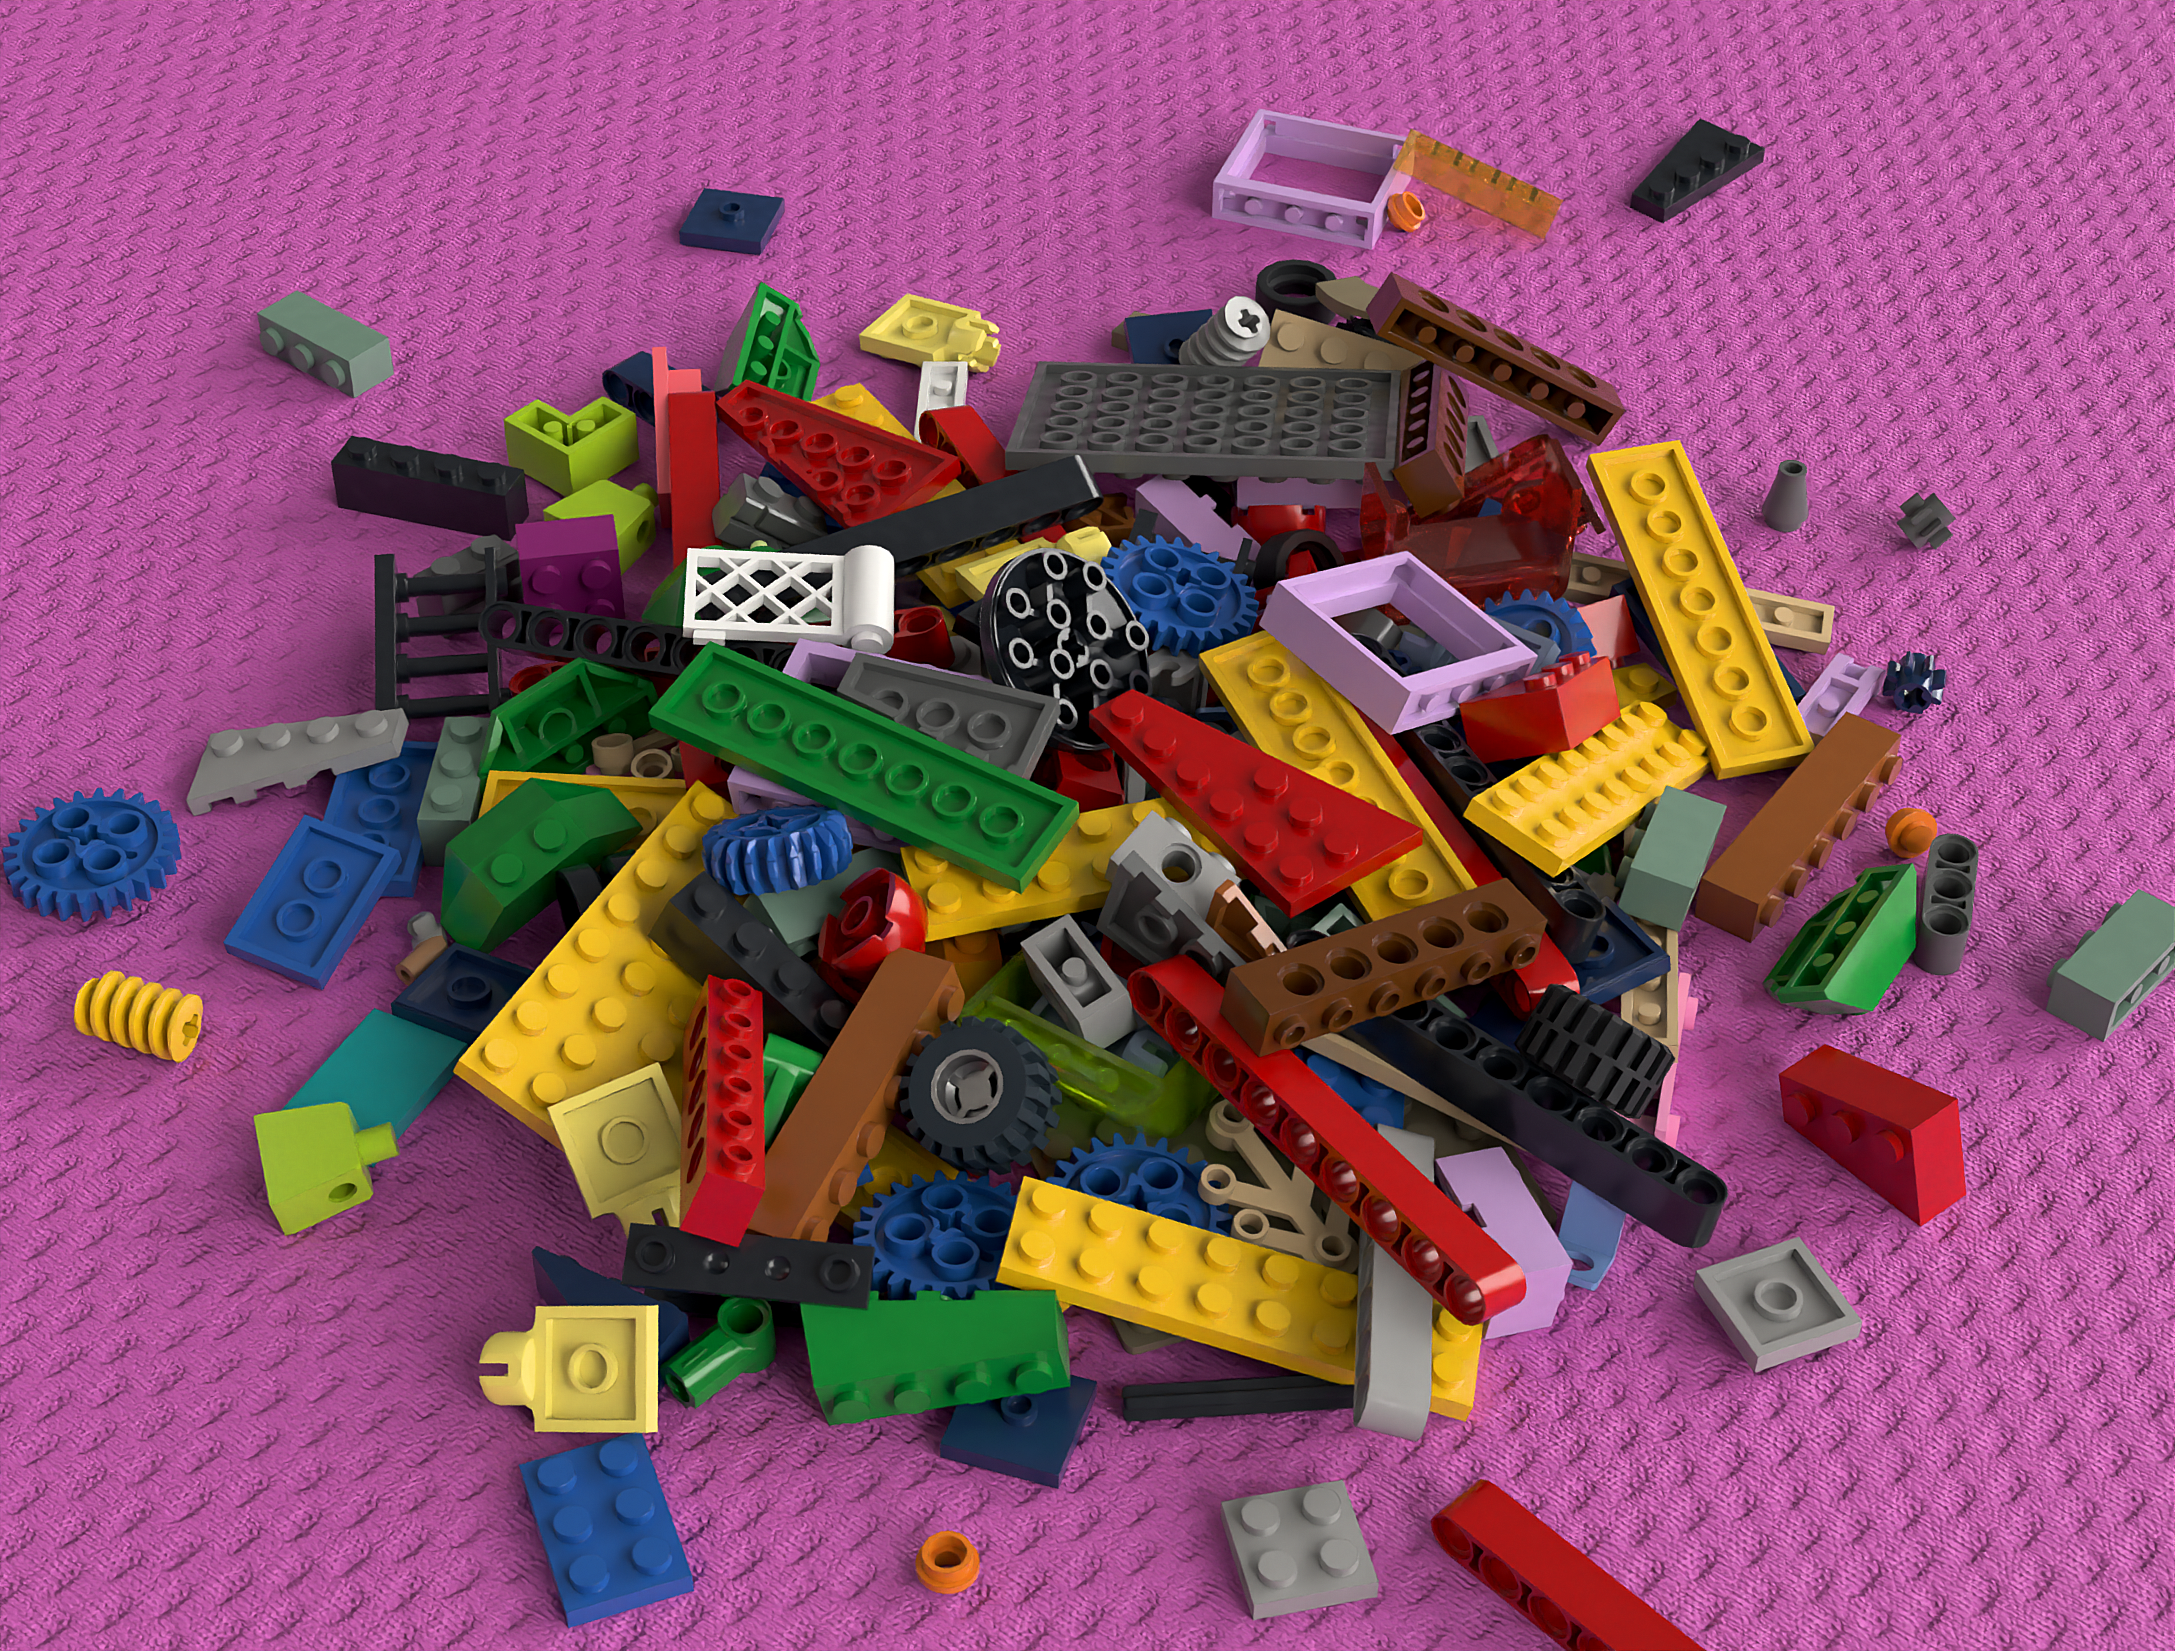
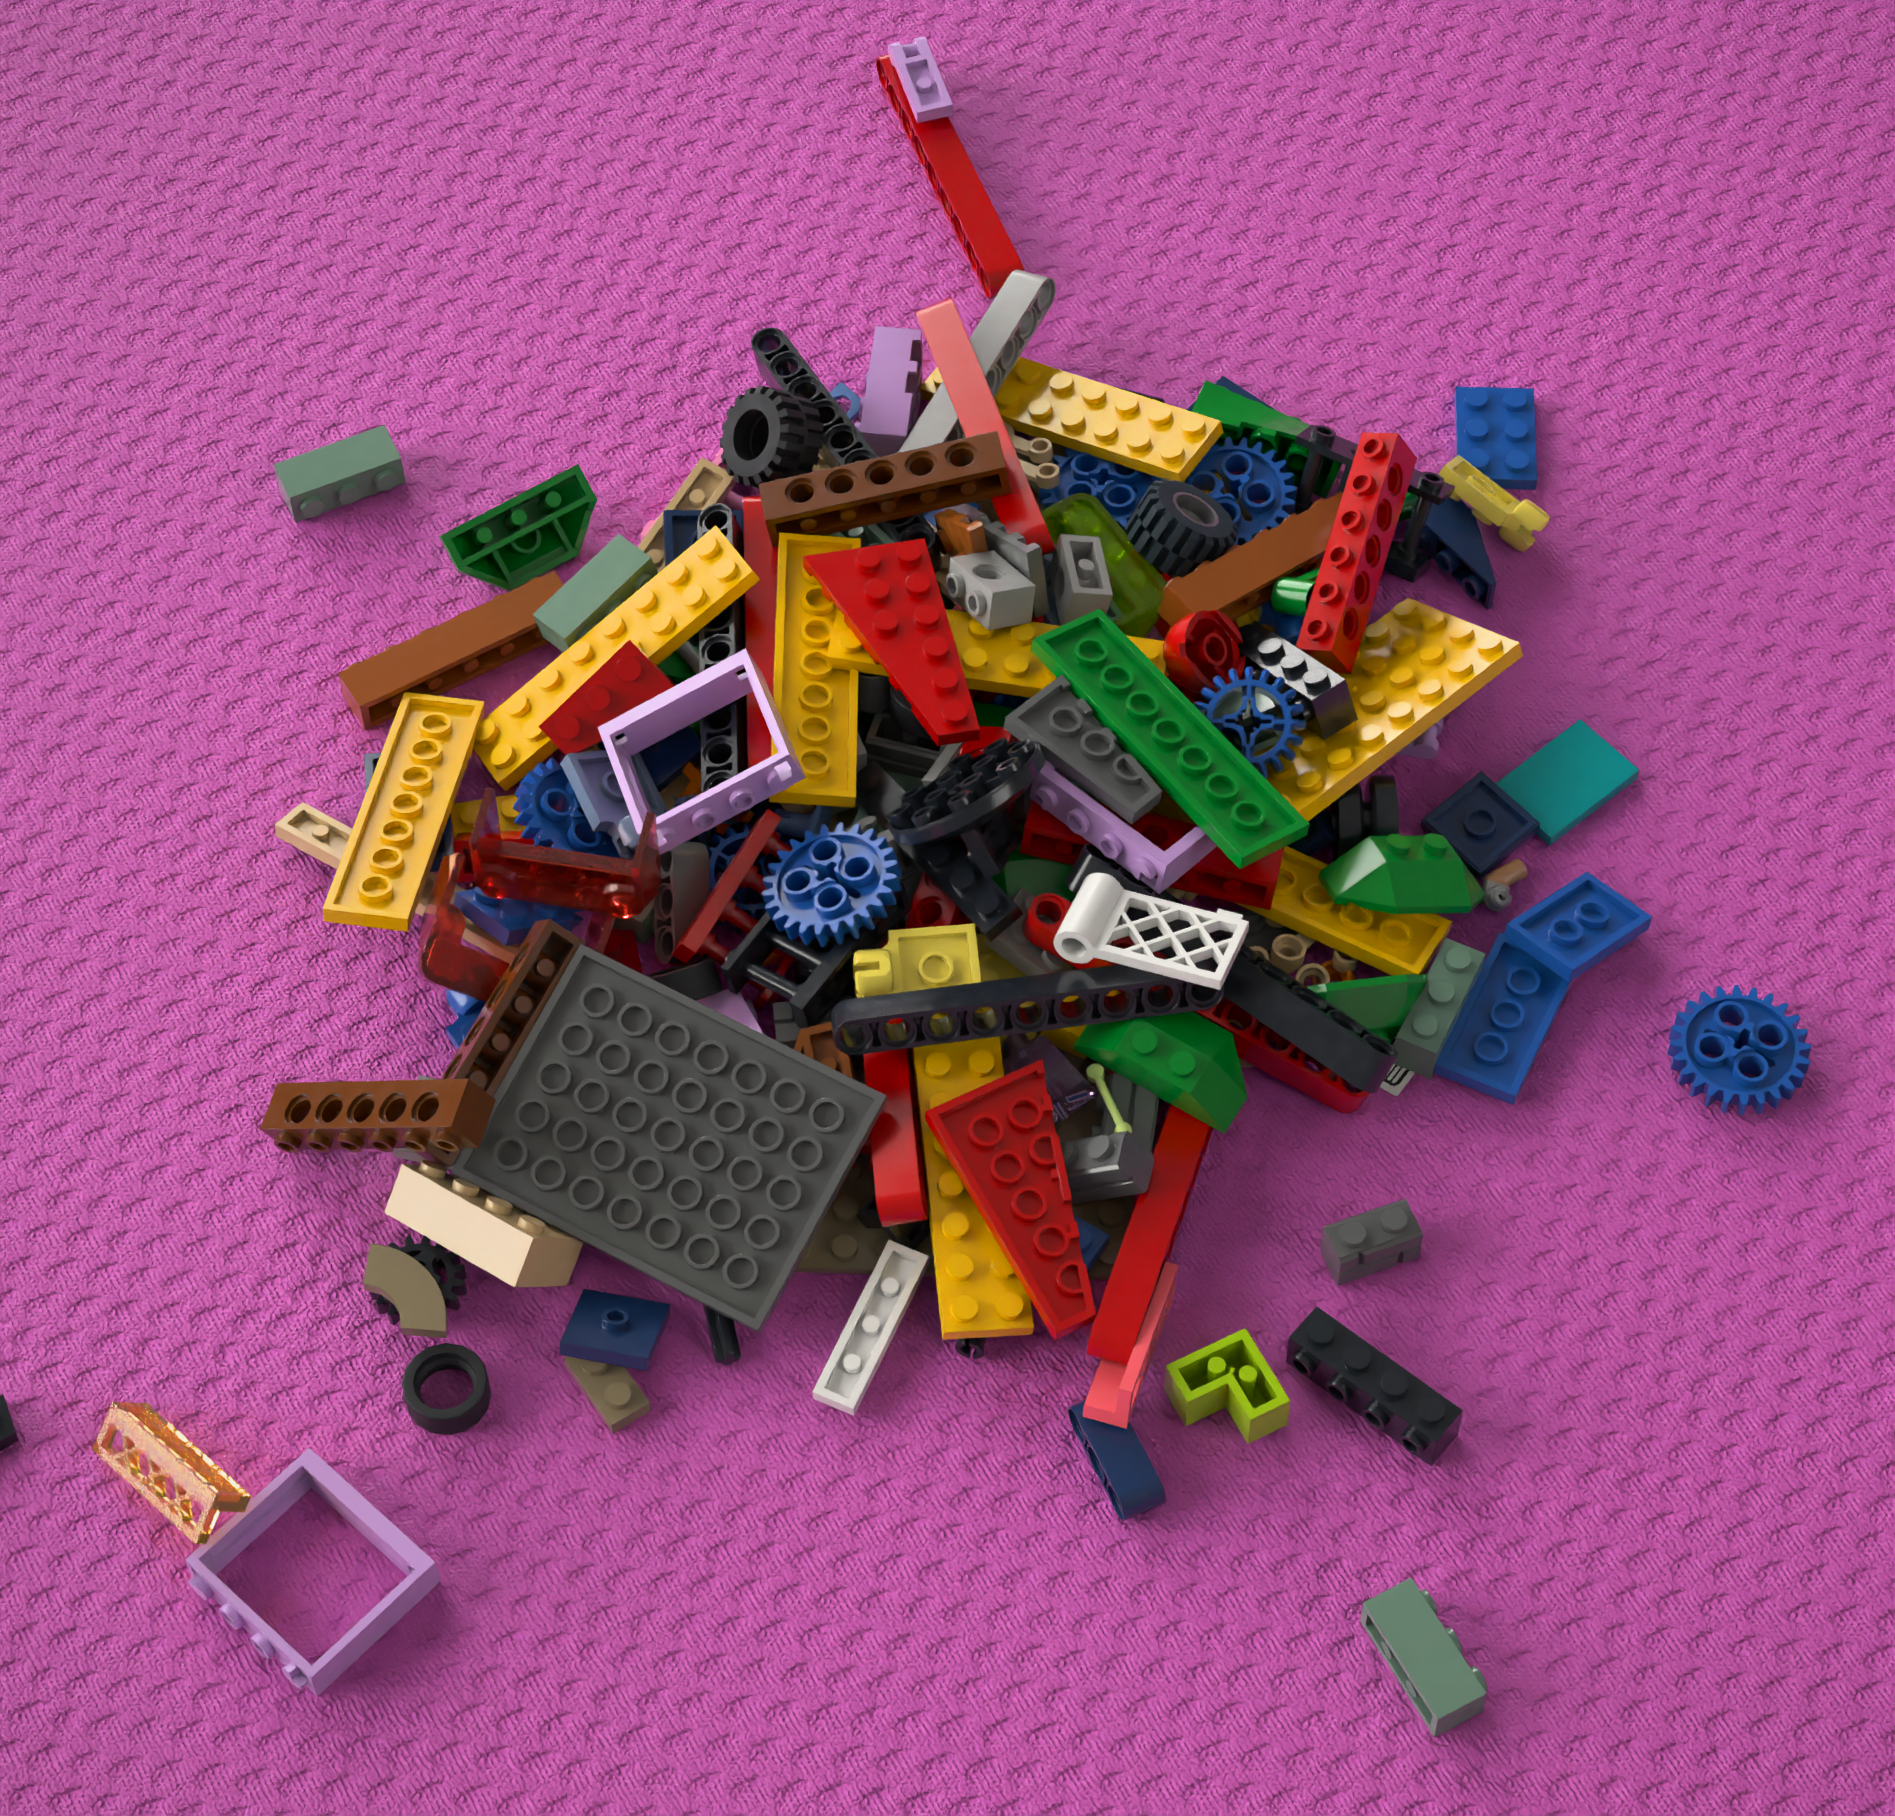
camera: 155 degrees left, 15 degrees up
(139, 1015) = (1720, 875): yellow piece -> none
(292, 753) = (1570, 1096): light grey wing -> none
(318, 1161) = (1618, 705): lime torso -> none
(394, 628) = (1451, 1172): black fence -> none
(572, 566) = (1285, 1195): magenta brick -> none
(625, 1147) = (1413, 586): light yellow plate -> none
(631, 511) = (1228, 1286): lime torso -> none
(732, 221) = (939, 1744): dark blue plate -> none
(770, 348) = (1011, 1441): green wedge -> none
(932, 330) = (825, 1455): light yellow plate -> none
(945, 1549) = (1307, 352): orange plate -> none
(1228, 336) = (585, 1265): light grey piece -> none
(1298, 1549) = (1105, 304): light grey plate -> none
(1405, 211) = (256, 1478): orange plate -> none
(1777, 1304) = (729, 335): light grey plate -> none
(1787, 499) = (213, 958): dark grey cone -> none
(1837, 690) = (337, 753): lavender plate -> none
(1879, 1128) = (602, 408): red wedge -> none
(1910, 832) = (387, 620): orange plate -> none
(1914, 682) = (274, 738): dark blue gear -> none
(1926, 521) = (123, 892): dark grey gear -> none
(1946, 904) = (411, 556): dark grey beam -> none

